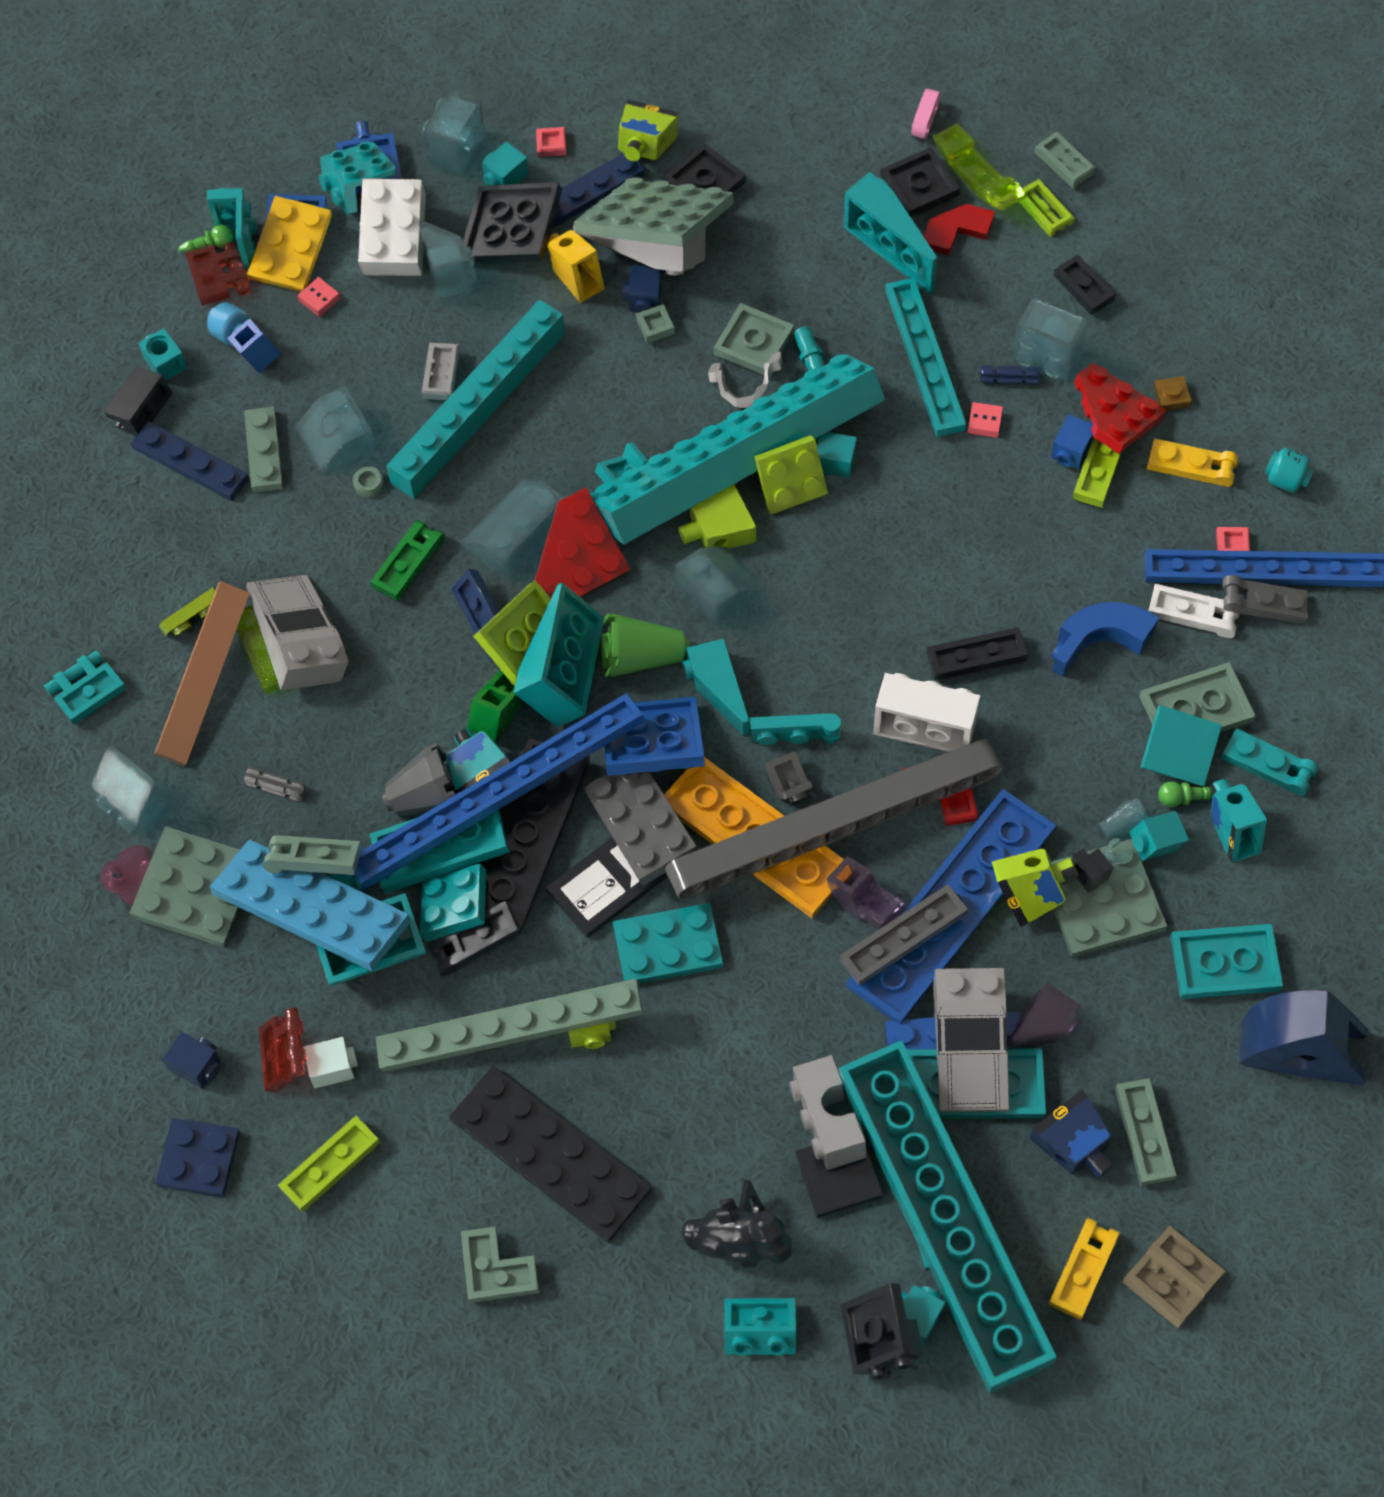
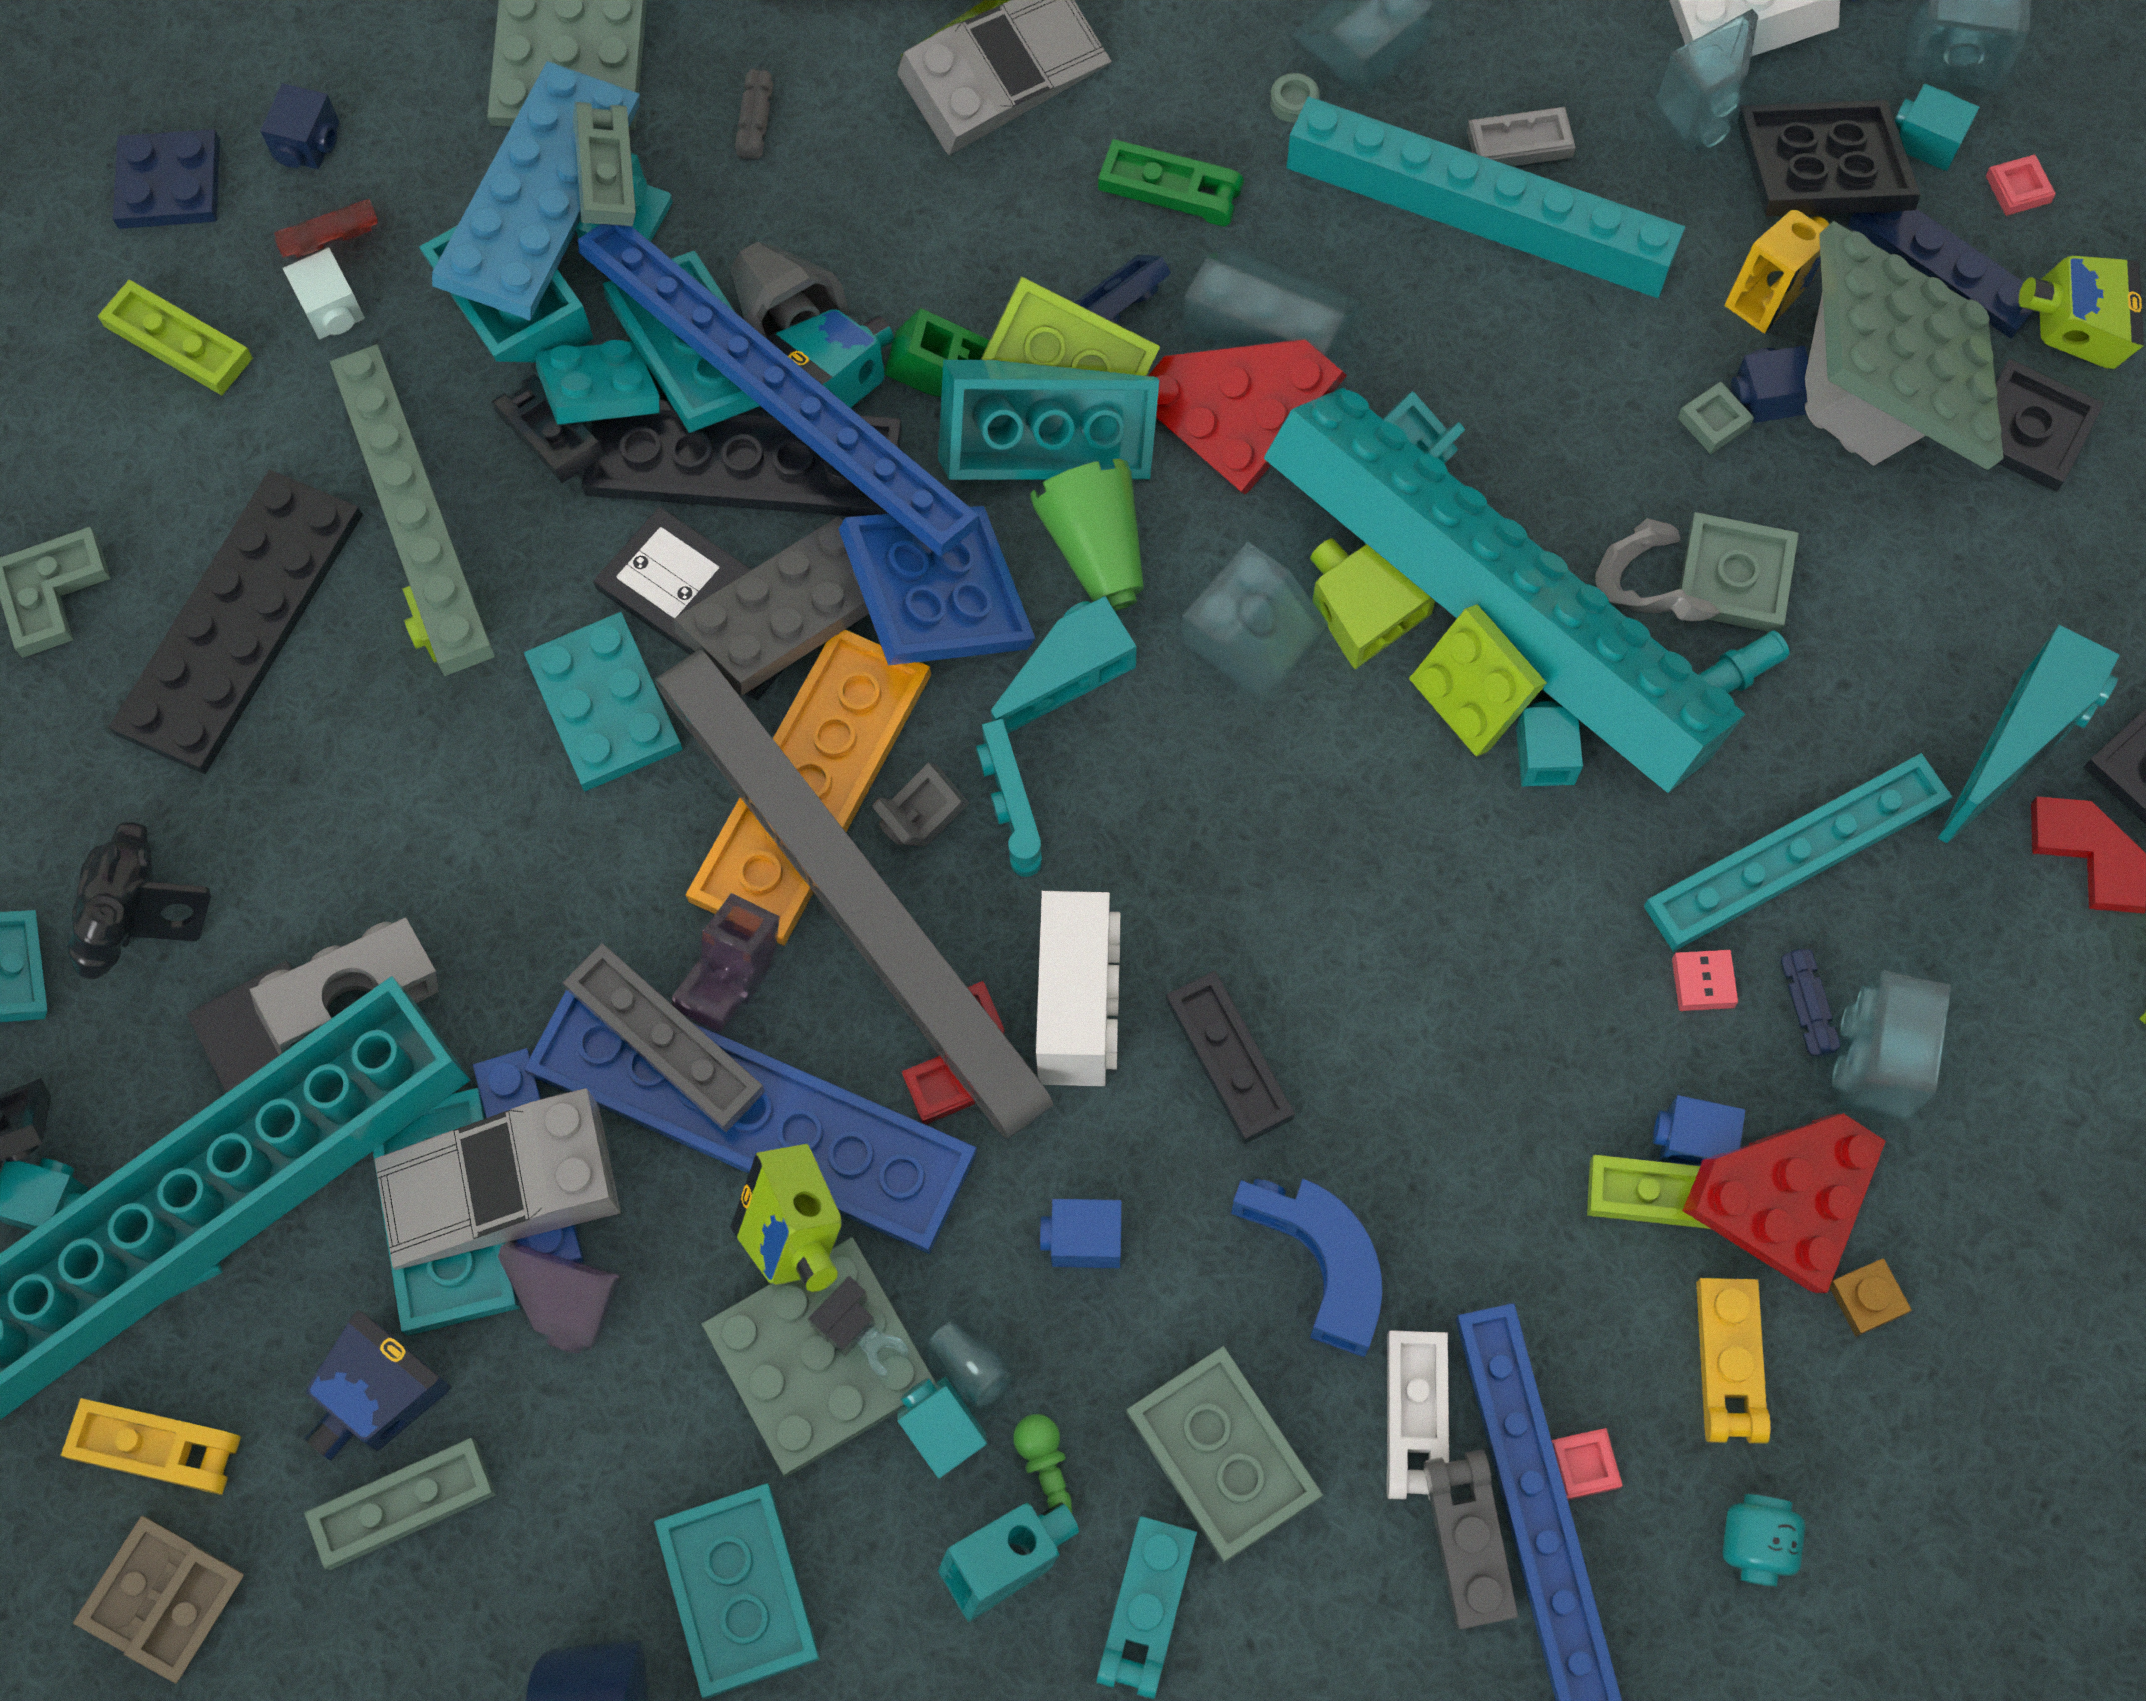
camera: 75 degrees right, 5 degrees up
(1063, 745) = (1083, 1233): none -> blue brick
(1084, 284) = (2049, 1094): black plate -> none
(1180, 746) = (1126, 1434): teal tile -> none

